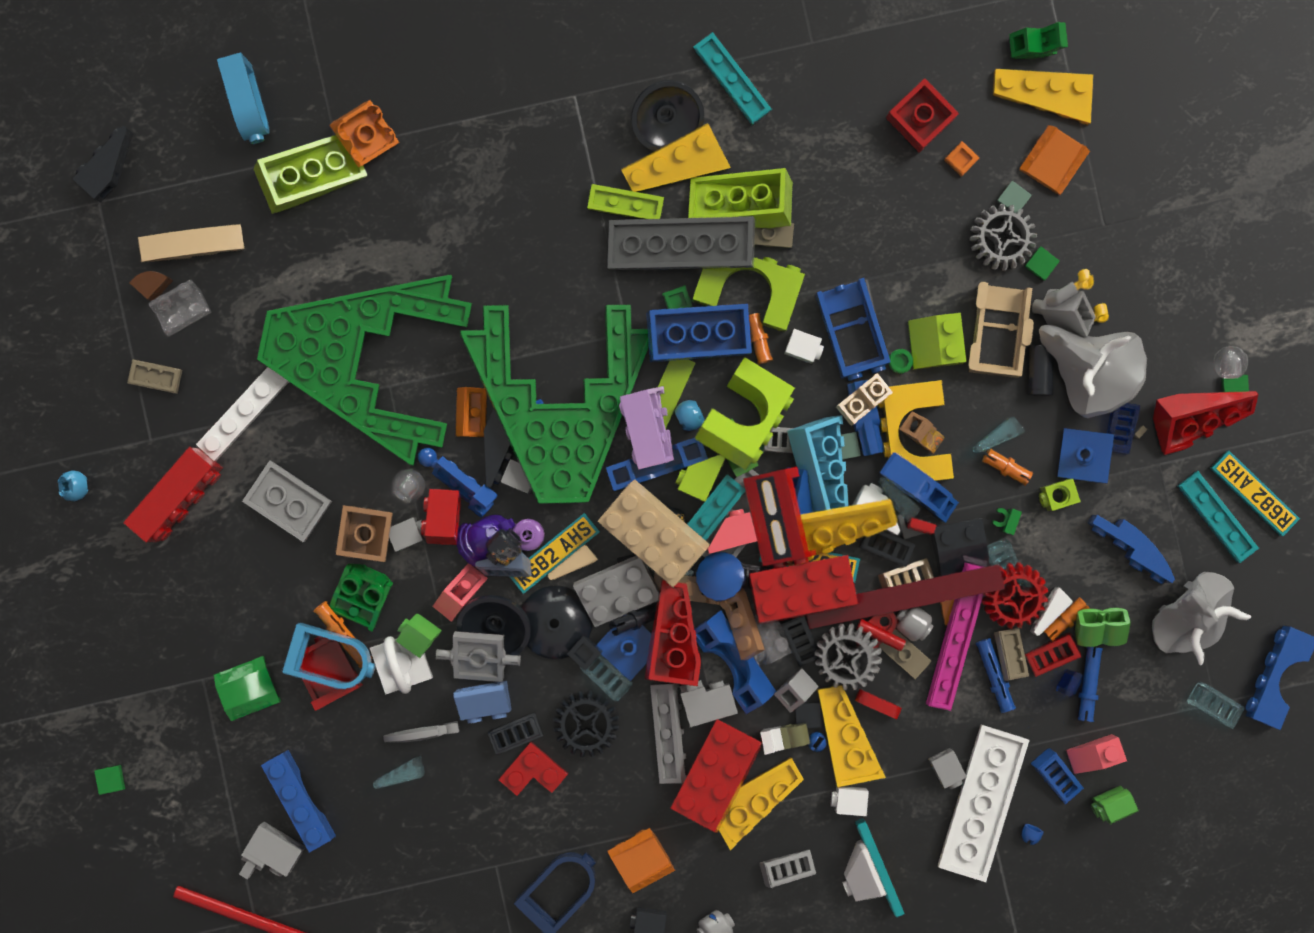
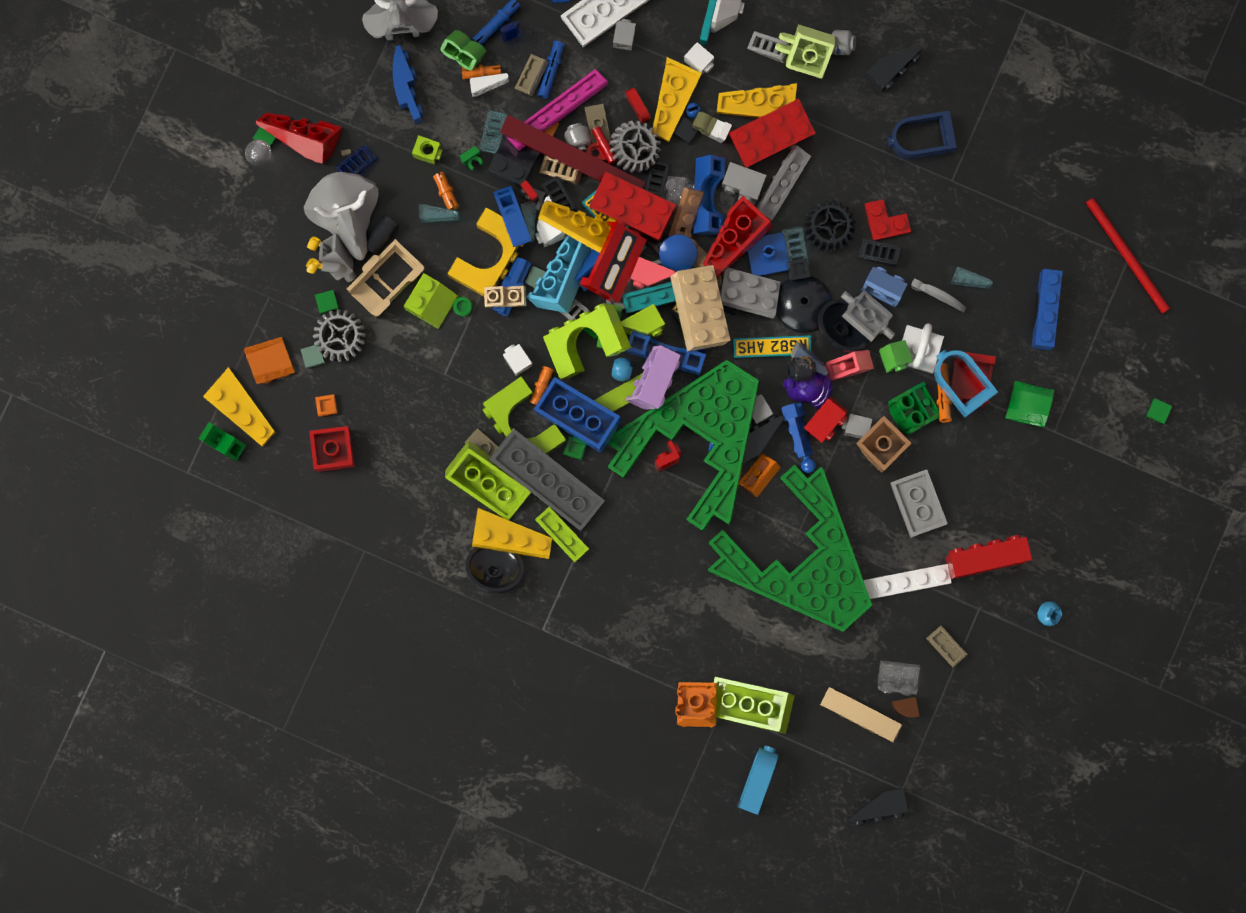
camera: 145 degrees left, 5 degrees down
(272, 849) = (1085, 292): light grey hinge -> none
(408, 485) = (833, 455): clear piece -> none
(537, 533) = (774, 373): medium lavender head -> none
(575, 352) = (666, 460): none -> red bracket
(579, 559) = (760, 330): tan slope -> none
(633, 620) = (753, 267): black pin -> none
(641, 860) = (857, 118): orange slope -> none
(732, 78) = (433, 565): teal tile -> none
(742, 892) = (806, 40): none -> yellowish green hinge
(796, 690) = (683, 150): light grey brick -> none
(844, 298) = (468, 372): blue door -> none
(925, 433) = (484, 248): medium nougat leg -> none
(1032, 594) = (496, 100): red gear -> none
(1058, 642) = (506, 49): red slope -> none
(1085, 456) = (392, 162): blue tile -> none
(1217, 517) = (338, 65): teal tile -> none
(1254, 493) = (304, 63): tile -> none

